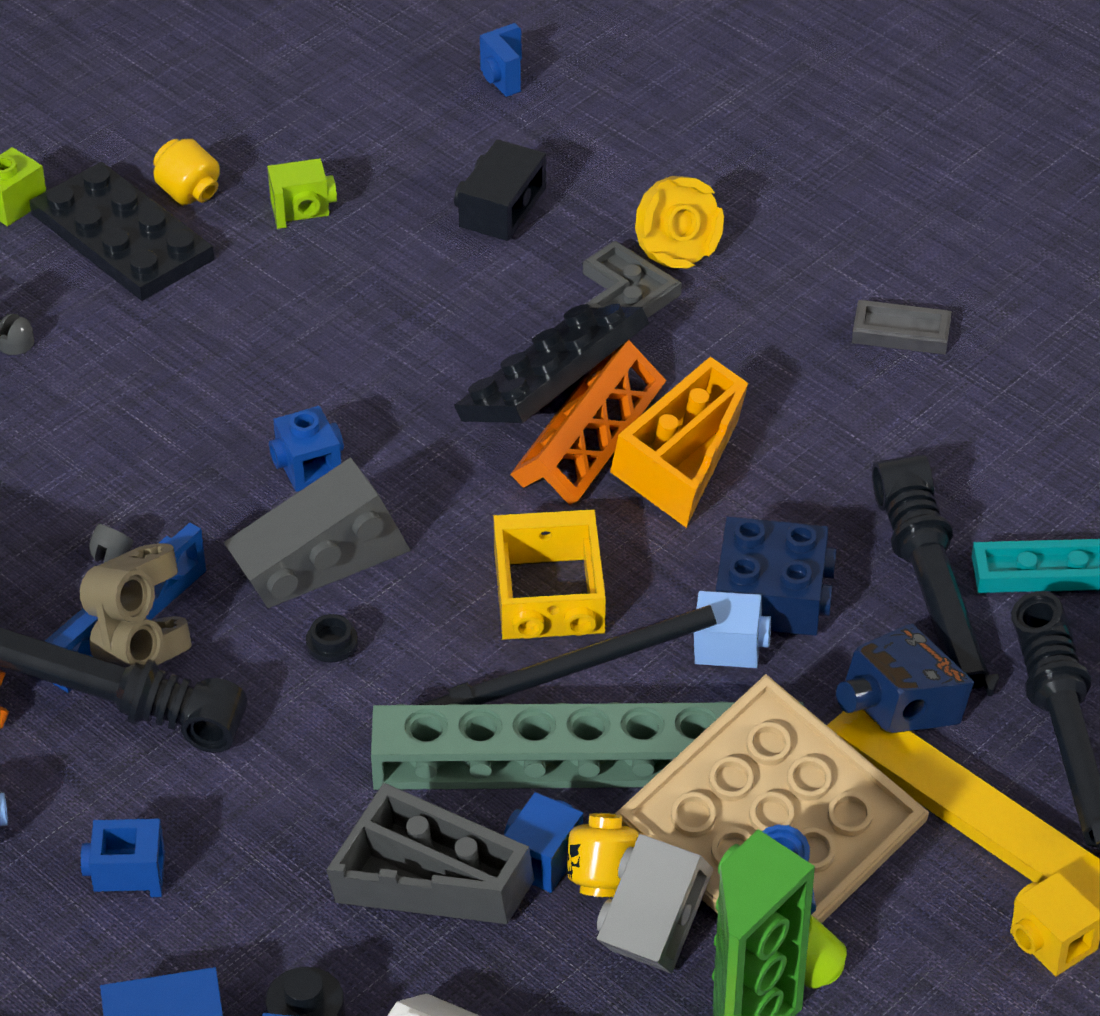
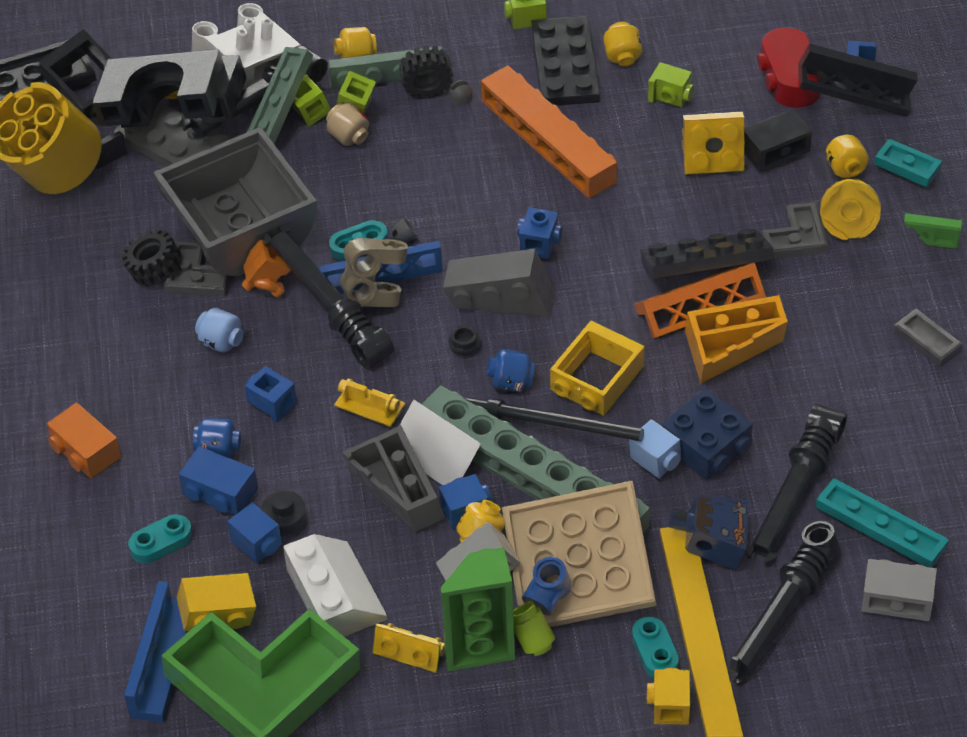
camera: 40 degrees right, 5 degrees up
(49, 593) = (369, 229): none -> teal plate
(103, 958) = (217, 436): none -> blue head
(190, 321) = (549, 131): none -> orange brick
(266, 794) = (368, 403): none -> yellow hinge
(430, 101) = (779, 60): none -> red brick
(431, 227) = (713, 142): none -> yellow piece
(439, 639) = (510, 370): none -> blue head
(453, 777) = (439, 445): none -> white sticker
(534, 72) = (856, 74): none -> black fence
(604, 168) = (846, 156): none -> yellow head
(680, 143) = (908, 162): none -> teal plate
(795, 199) = (935, 230): none -> bright green tile
(963, 879) = (653, 645): none -> teal plate

